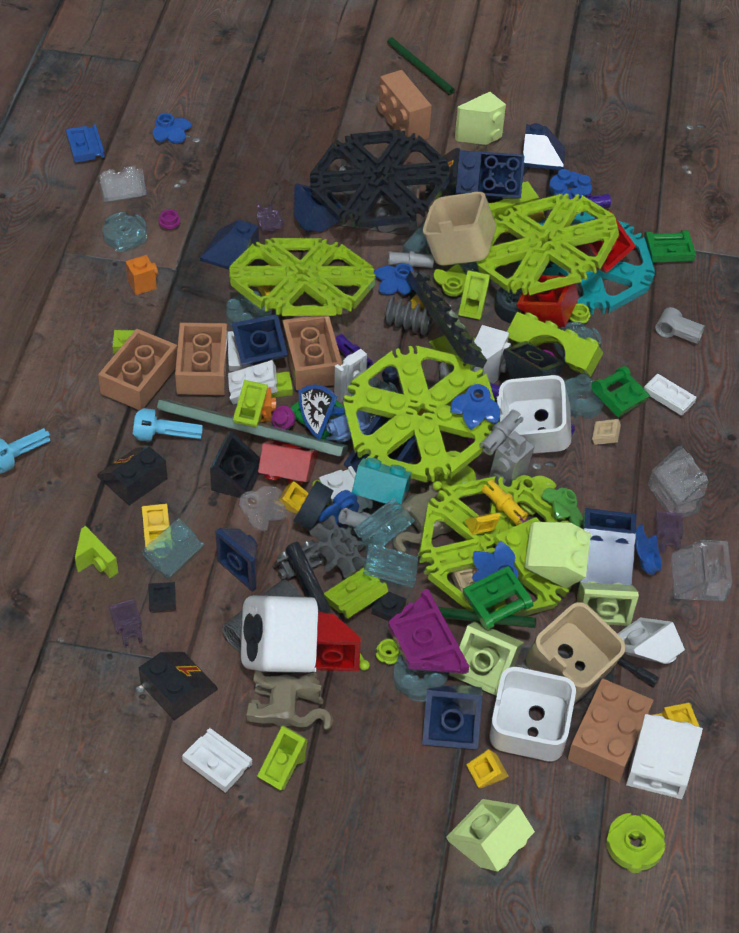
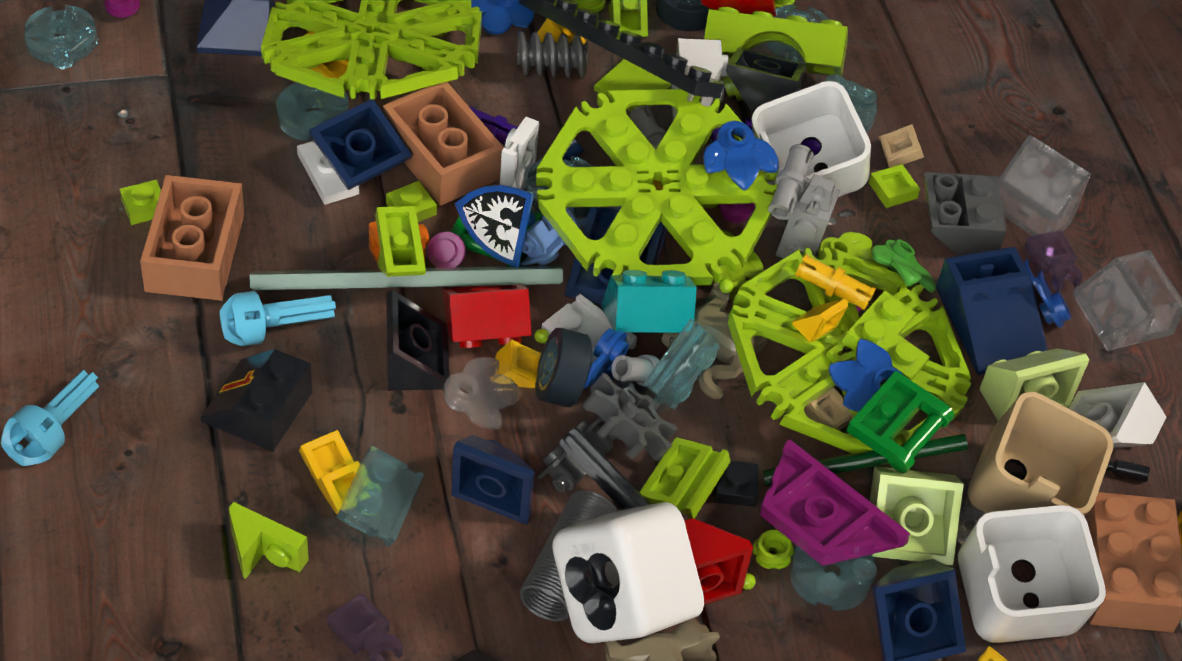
camera: 25 degrees left, 0 degrees up
(141, 274) = (122, 94): orange brick -> none
(162, 596) = (400, 575): black plate -> none
(201, 359) = (284, 195): nougat brick -> none
(261, 373) = (360, 207): white plate -> none
(390, 565) = (714, 421): clear light blue plate -> none
(558, 552) = (945, 330): yellowish green slope -> none
(587, 455) = (894, 186): none -> lime plate
(620, 483) = (965, 211): none -> dark grey slope
(623, 398) = (903, 90): green plate -> none
(669, 394) = (954, 73): white plate -> none

